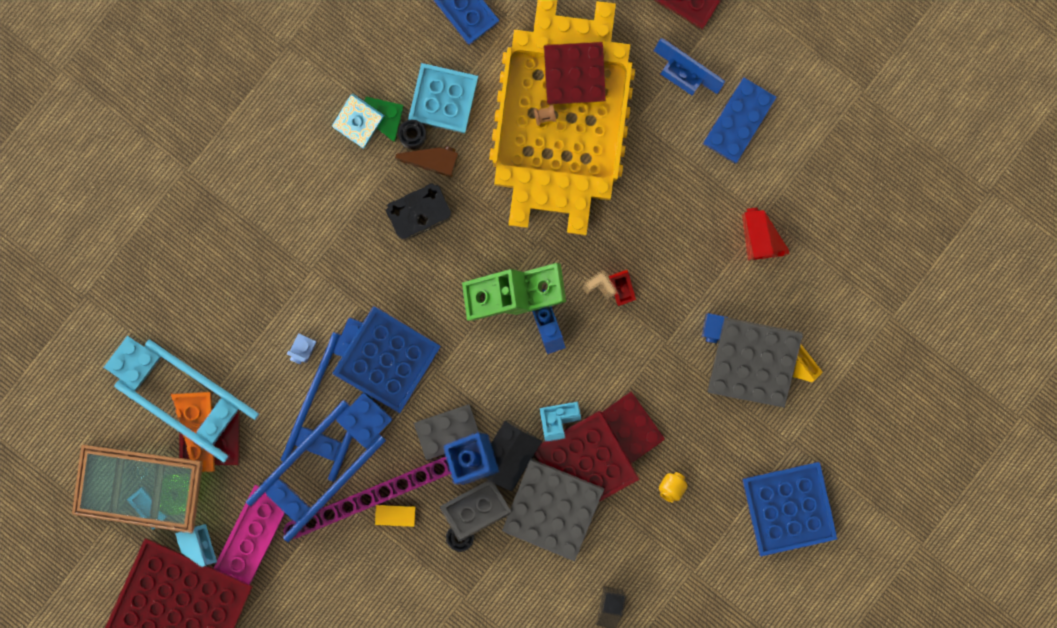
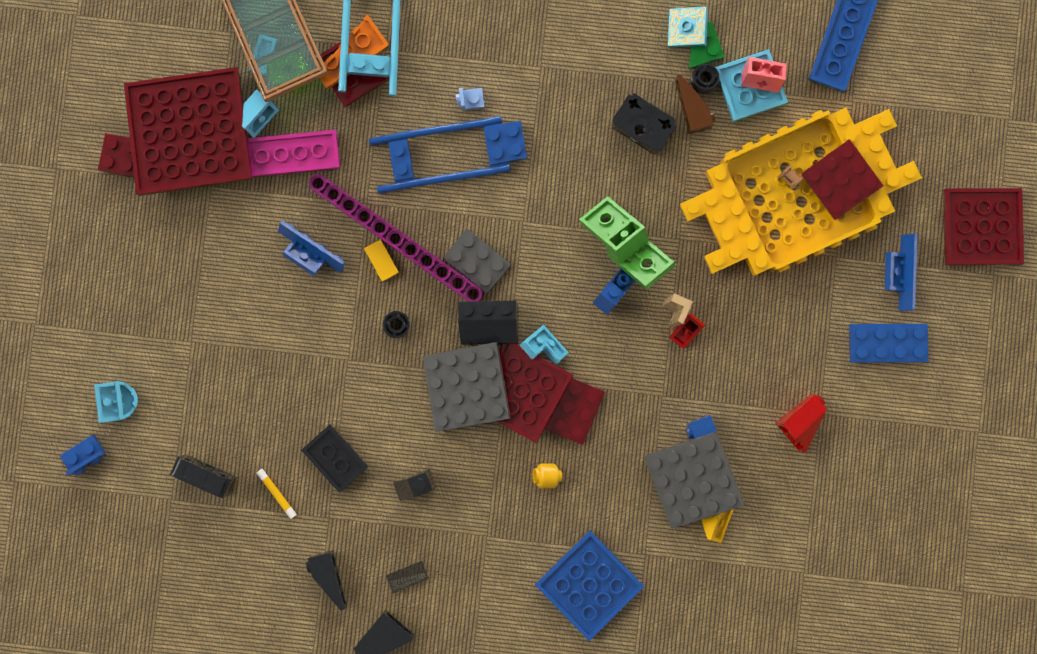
camera: 65 degrees right, 0 degrees up
(348, 577) = (306, 252): none -> blue bracket
(361, 420) = (442, 185): blue plate -> none
(386, 359) = (505, 172): blue plate -> none
(441, 83) = (763, 74): none -> coral brick
(471, 458) = (467, 291): blue brick -> none
(475, 510) = (426, 323): dark grey plate -> none

